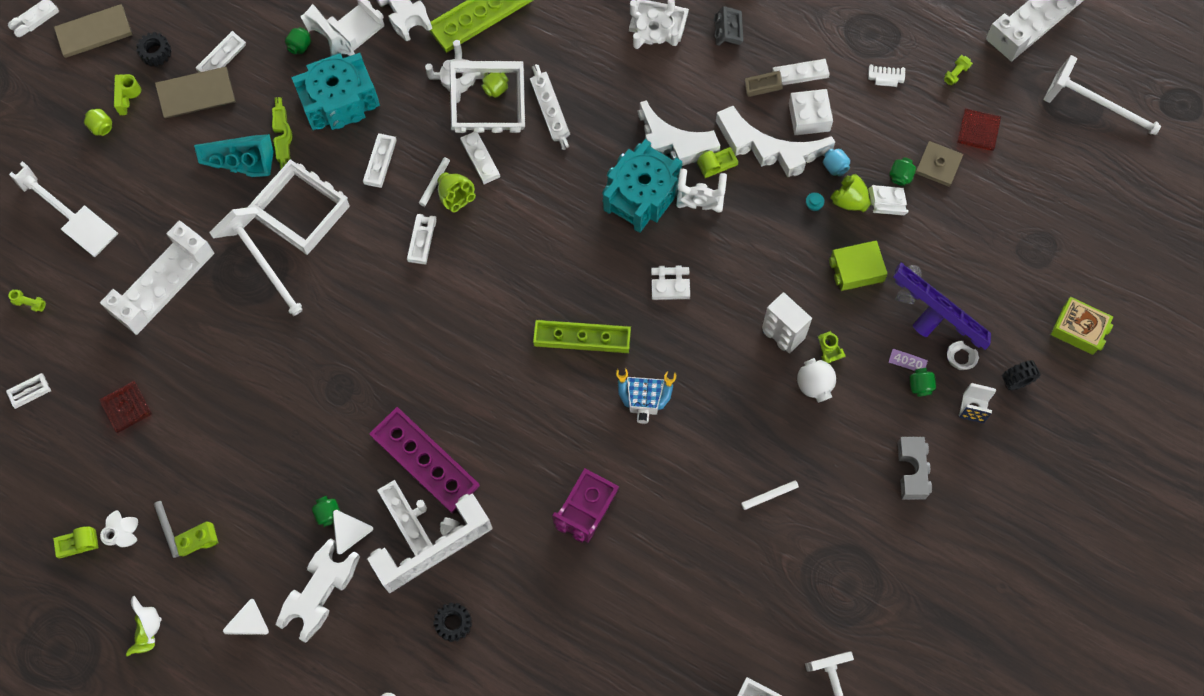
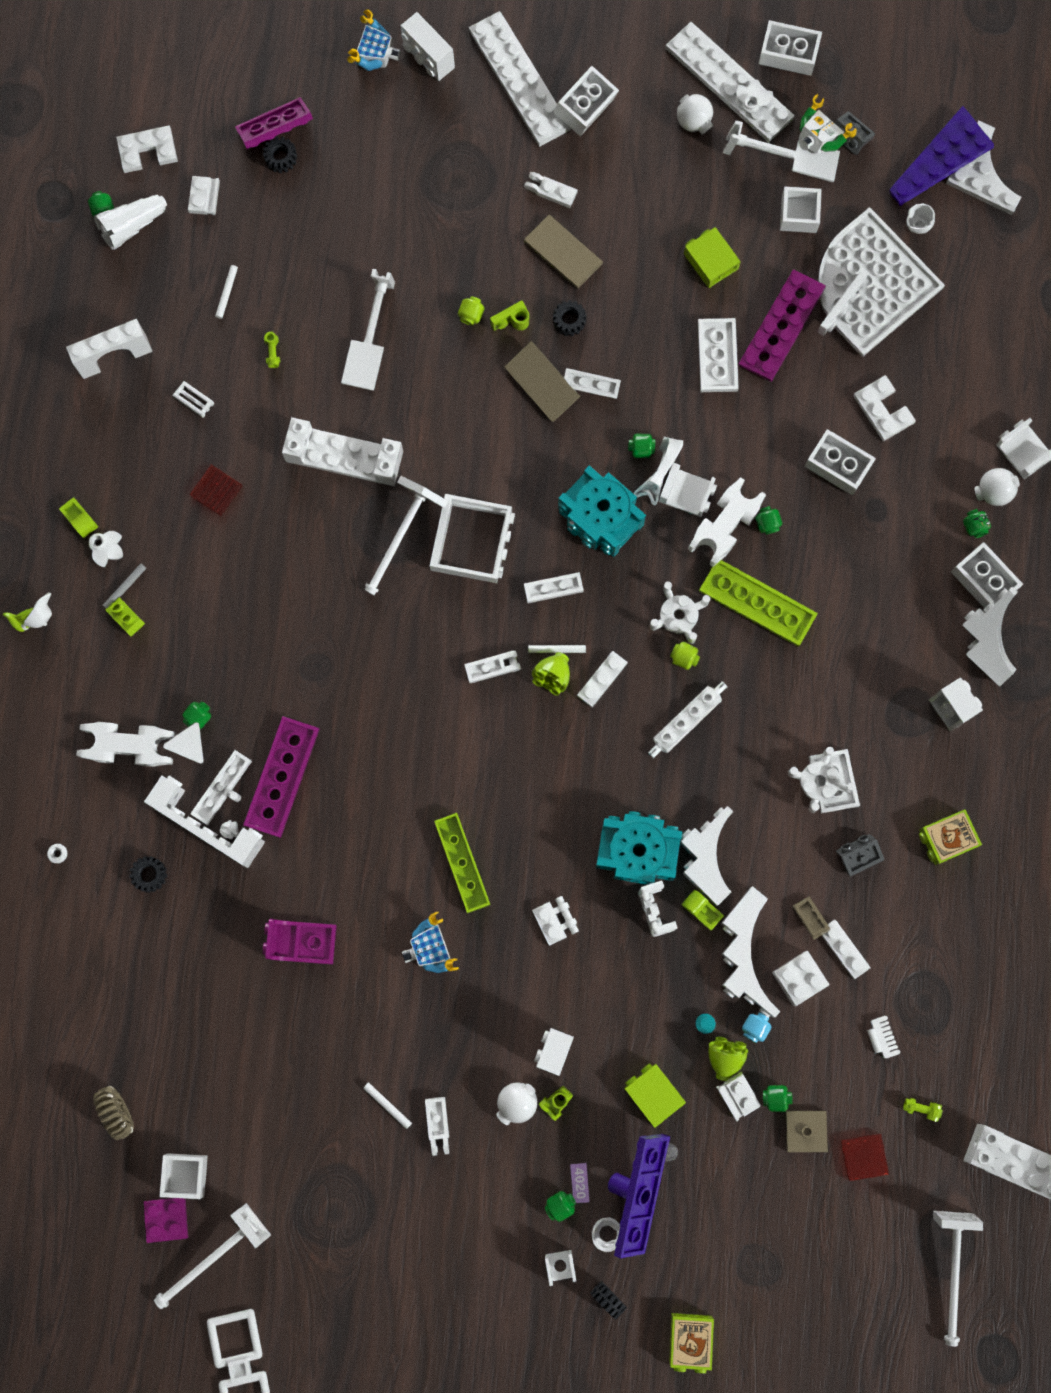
camera: 65 degrees right, 10 degrees up
(245, 155) = (501, 461): teal wedge -> none
(247, 621) = (73, 699): white piece -> none
(280, 125) = (547, 476): lime piece -> none
(494, 67) = (637, 678): white window -> none
(805, 457) = (437, 1123): none -> white hinge
(915, 451) = (456, 1241): light grey arch -> none

